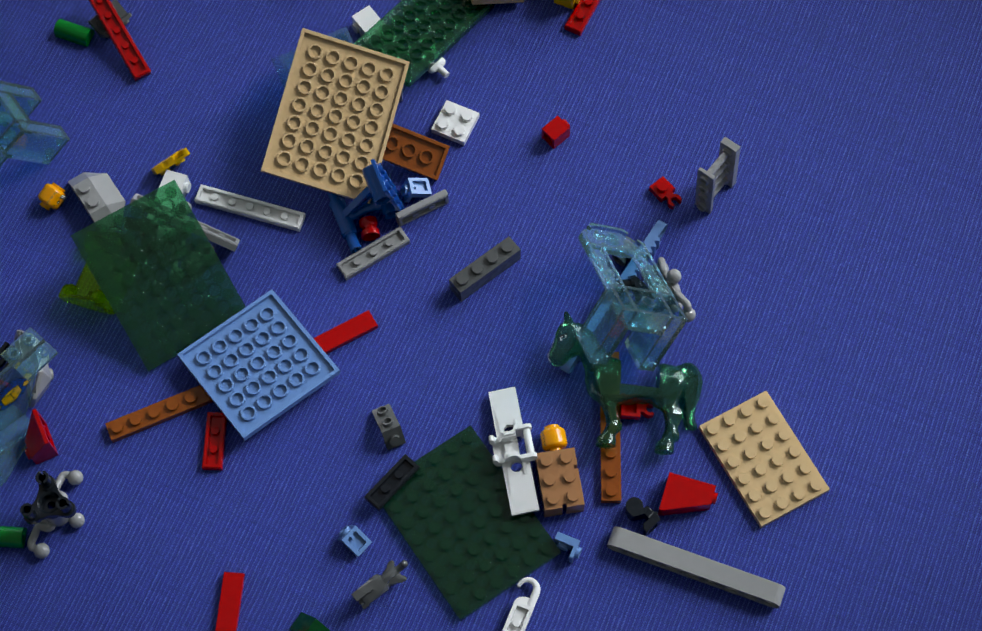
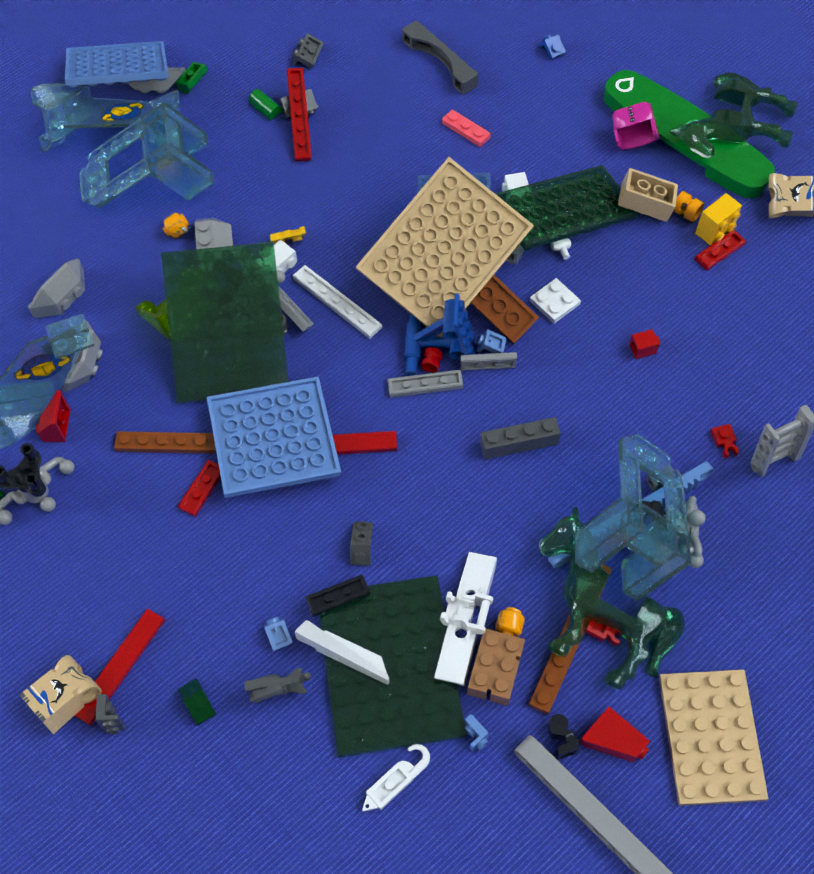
camera: 25 degrees right, 5 degrees down
(422, 529) = (343, 651): none -> white wedge

